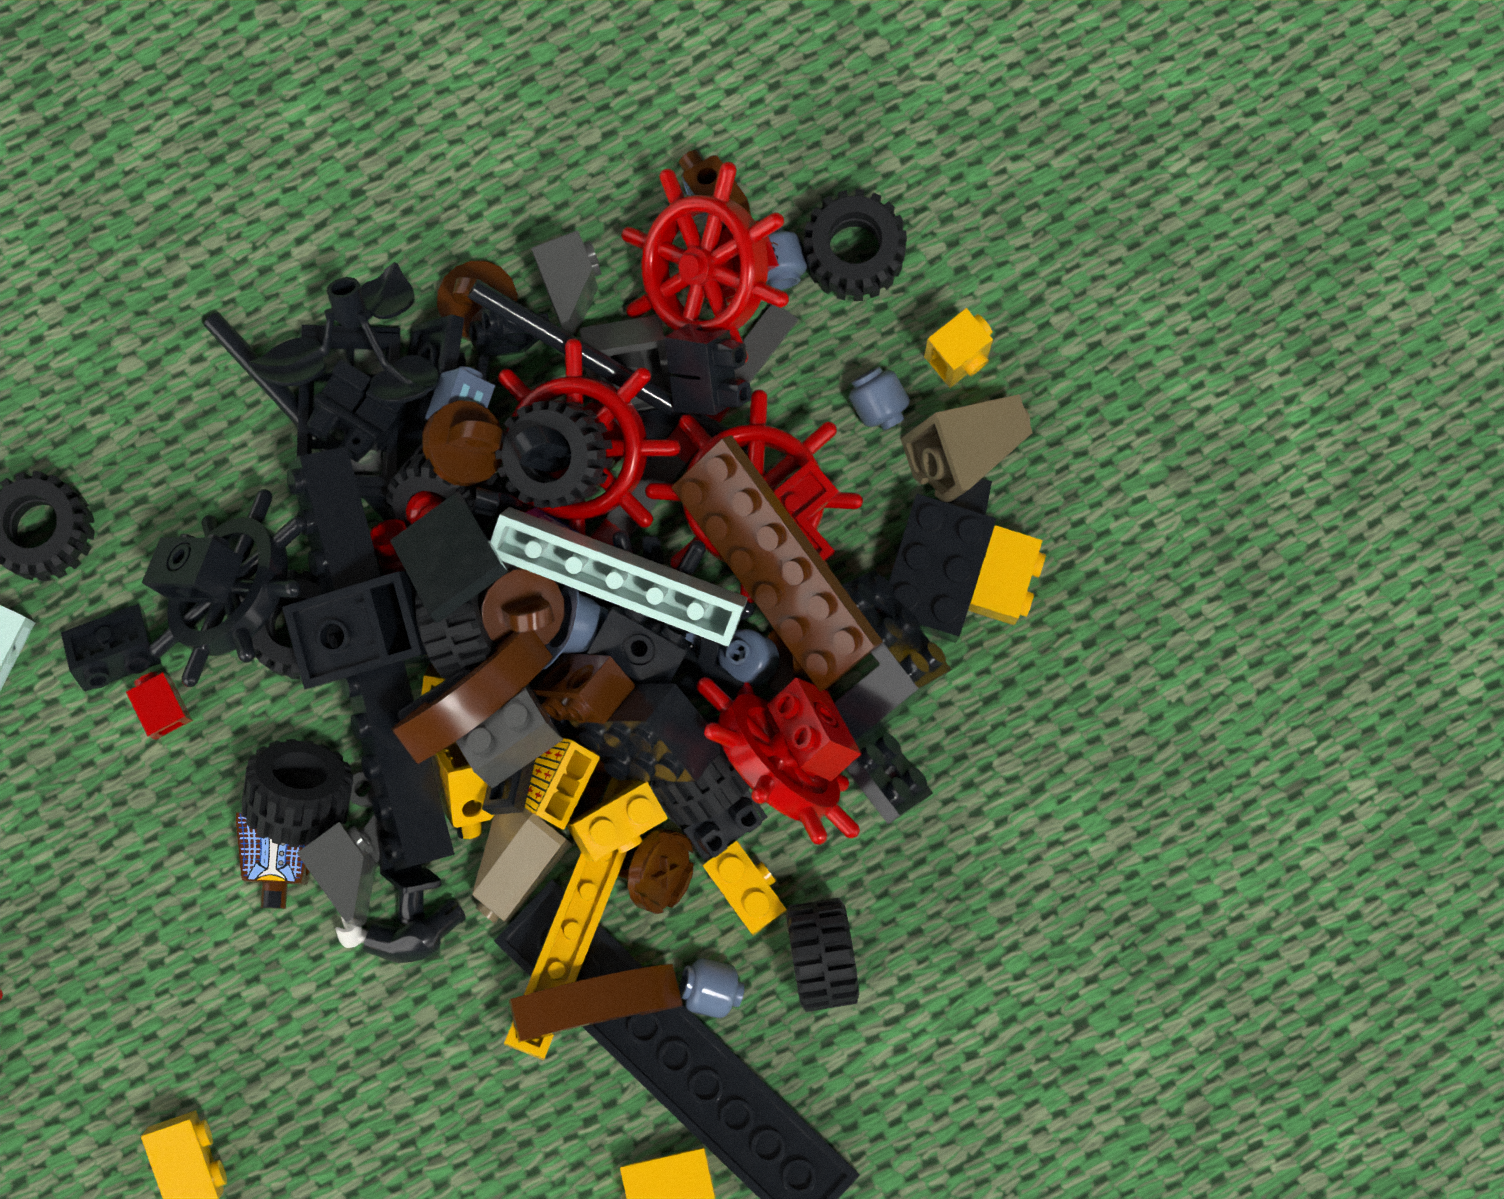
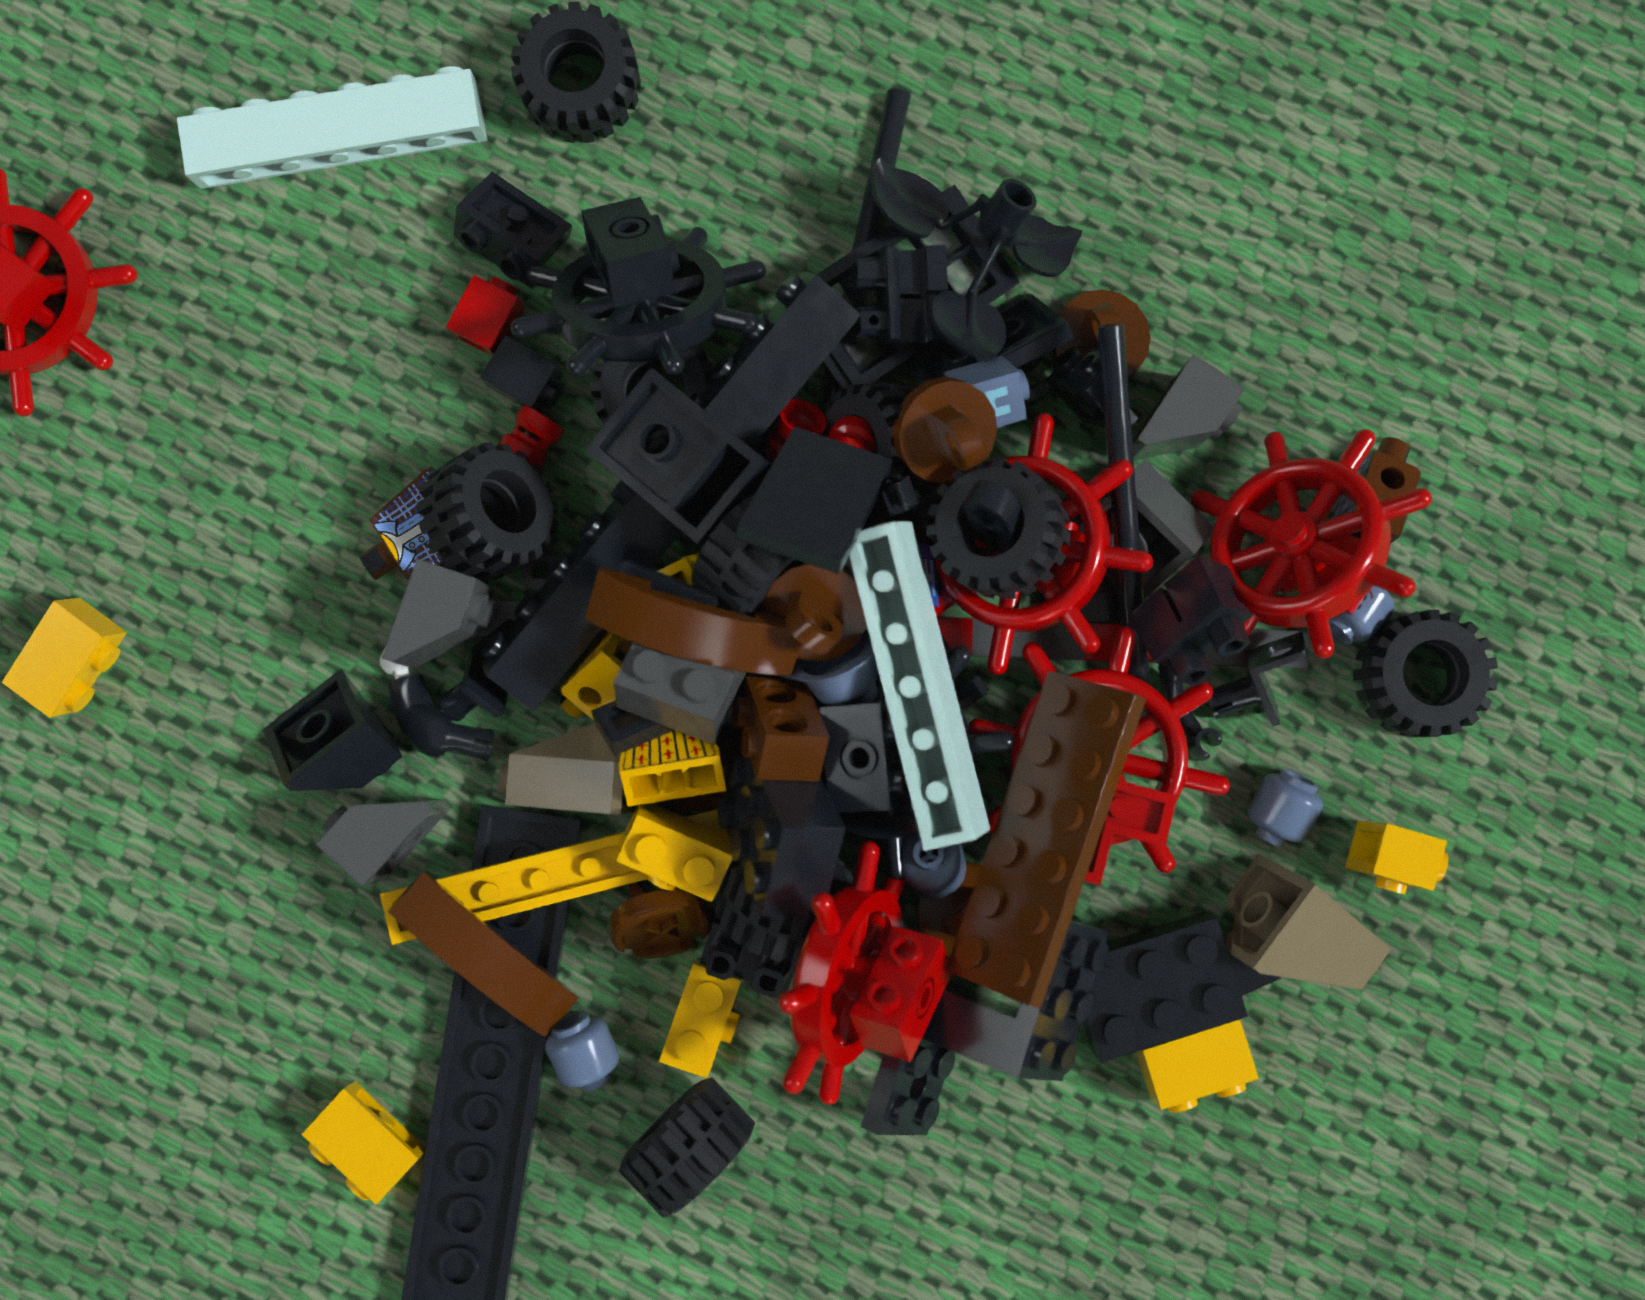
camera: 50 degrees right, 5 degrees up
(219, 708) = (523, 376): none -> black brick
(263, 728) = (539, 427): none -> red wheel
(373, 1015) = (331, 740): none -> black slope
(462, 1019) = (378, 837): none -> dark grey slope
(742, 416) = (1193, 731): none -> black piece
(785, 362) = (1255, 687): none -> black bracket

